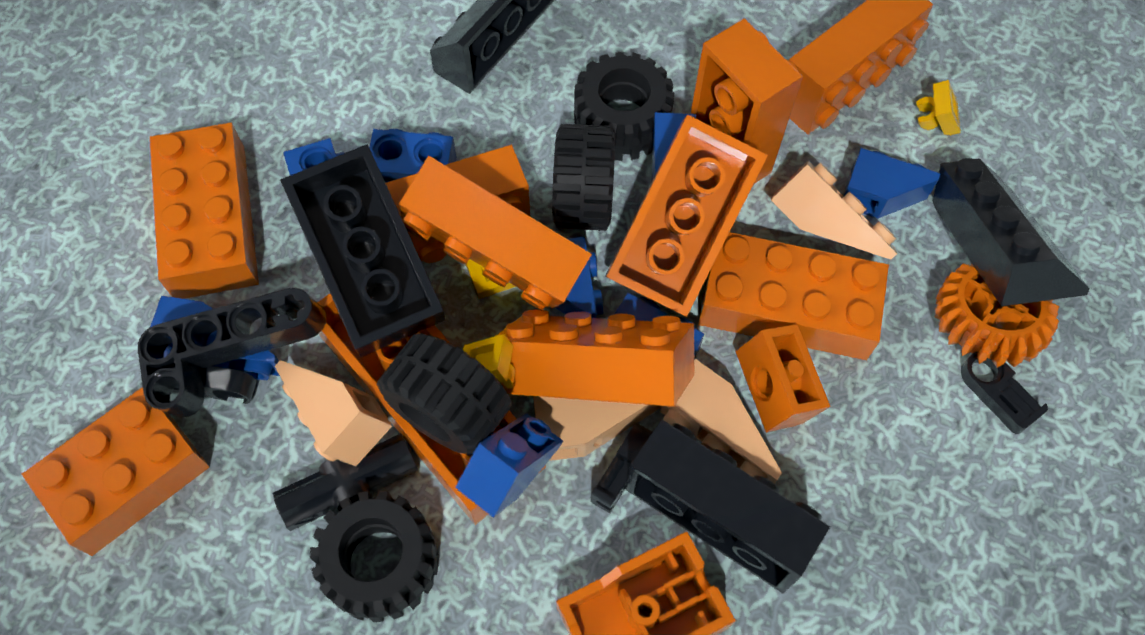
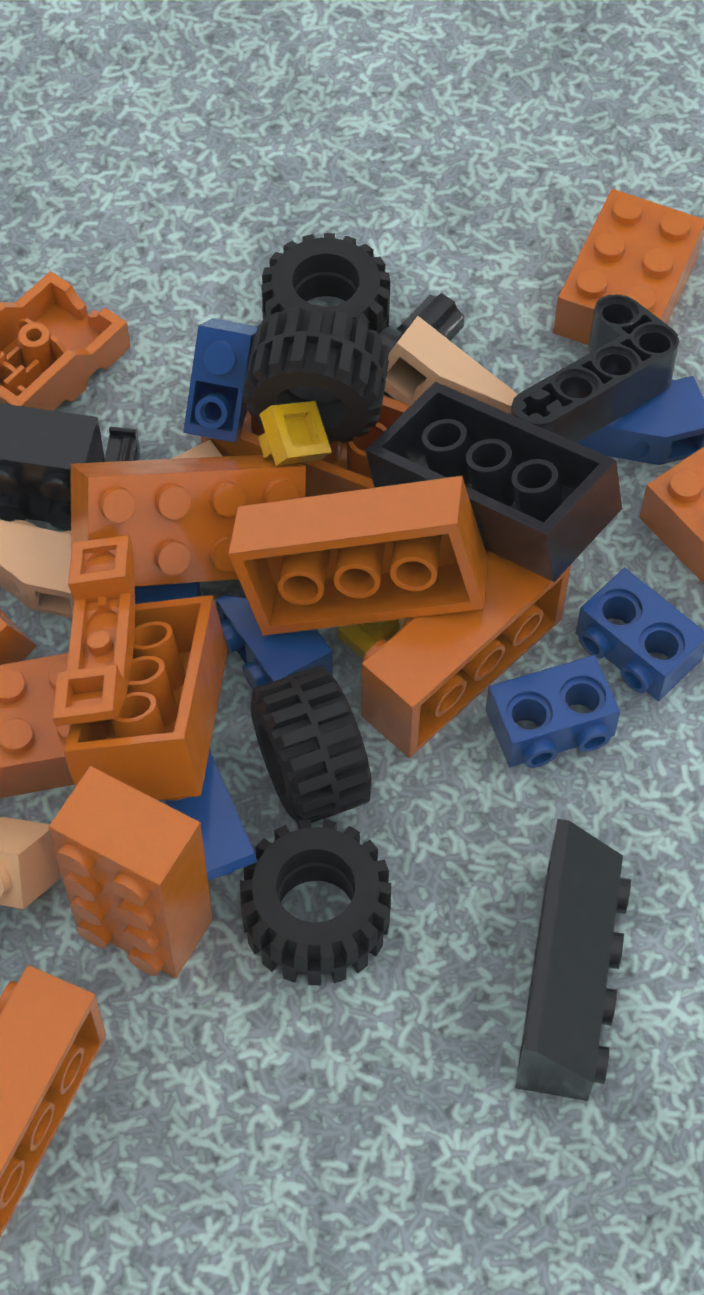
camera: 155 degrees right, 5 degrees down
(711, 241) = (100, 632): none -> orange slope

